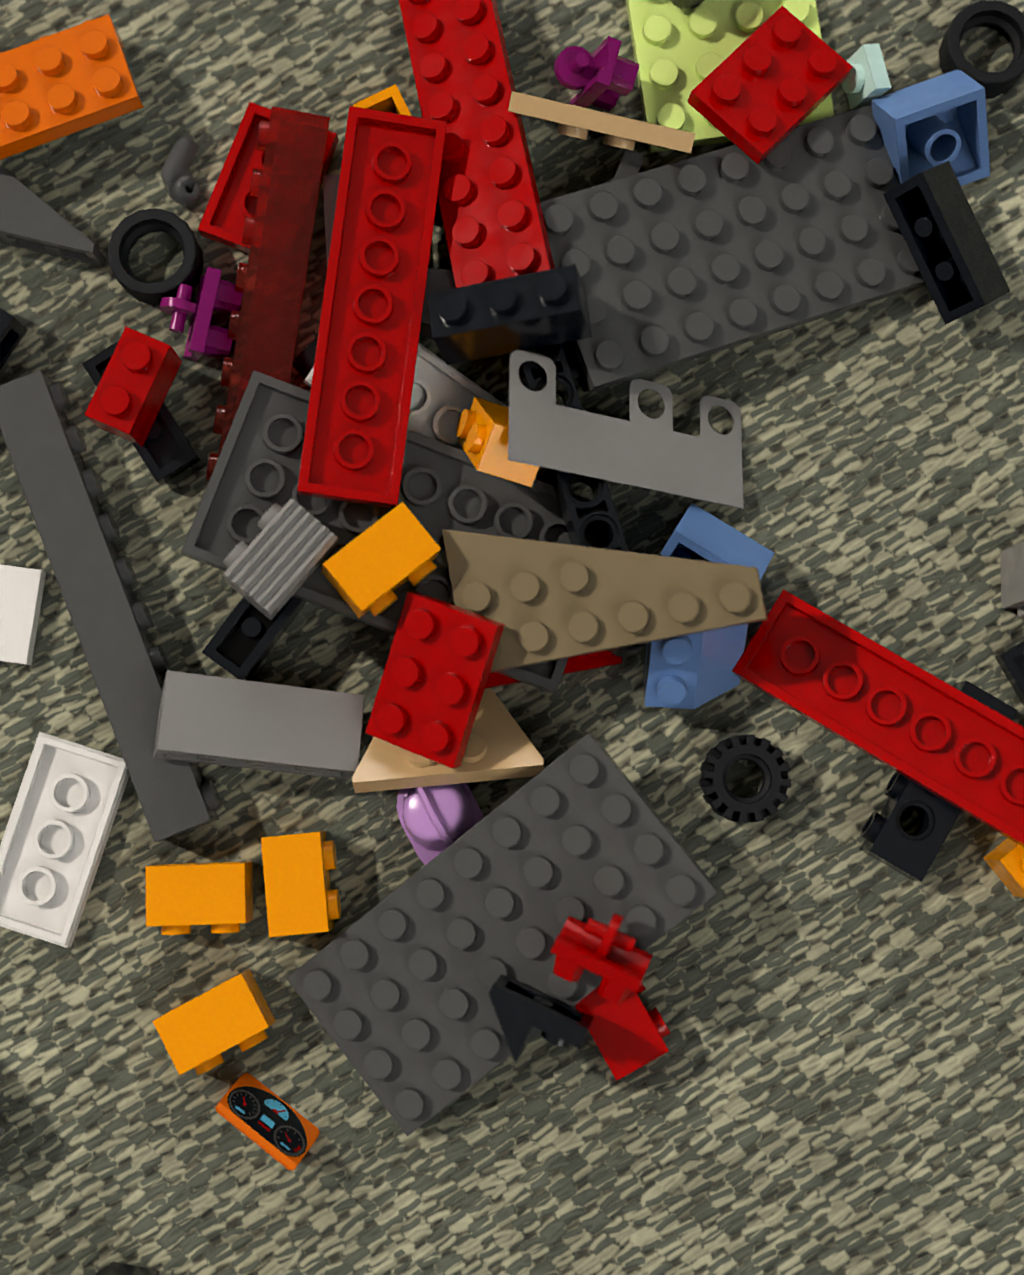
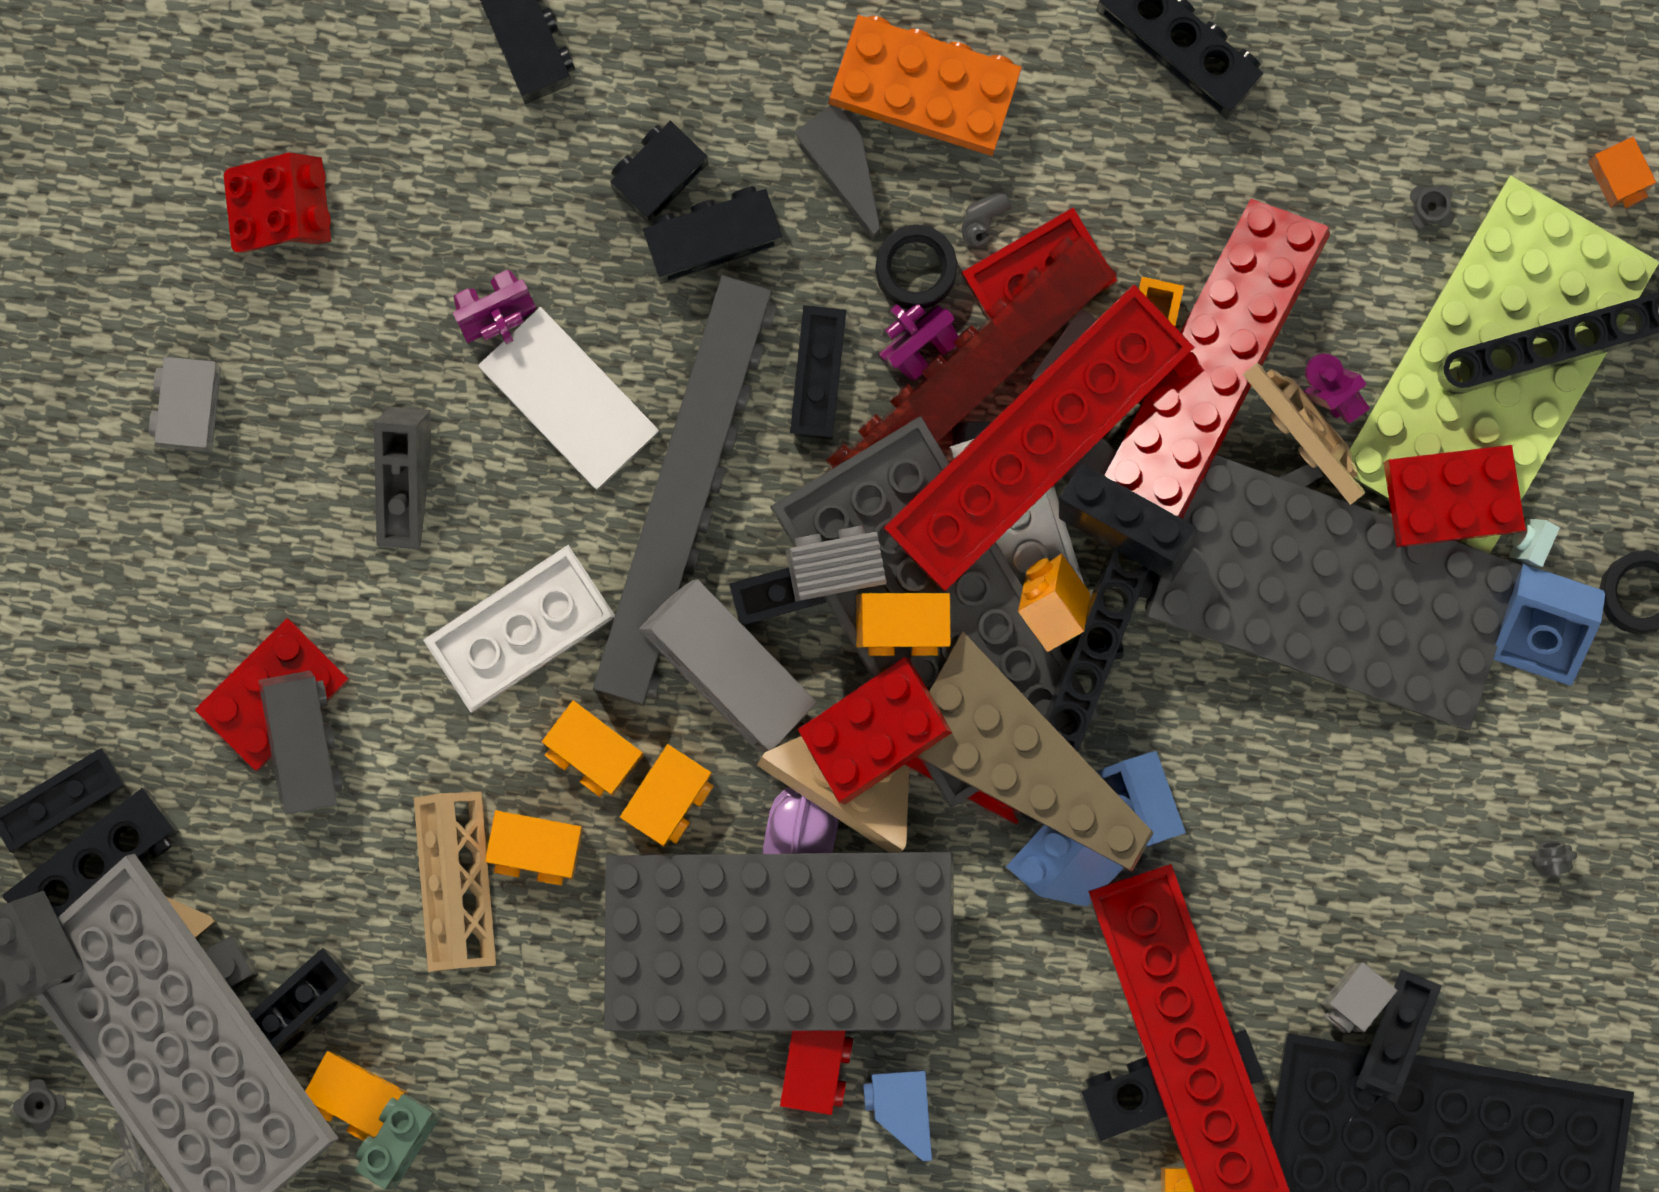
camera: 35 degrees right, 0 degrees up
(133, 386) = (827, 356): red brick -> none
(158, 1121) = (446, 881): none -> tan fence
(268, 1121) = (517, 942): slope -> none
(524, 1008) = (756, 1002): black slope -> none
(603, 952) = (842, 1004): red hips -> none
(621, 451) = (1140, 684): light grey piece -> none
(725, 996) = (902, 1108): none -> medium blue slope
(774, 778) = (1061, 963): black tyre -> none
(946, 242) = (1488, 711): black brick -> none

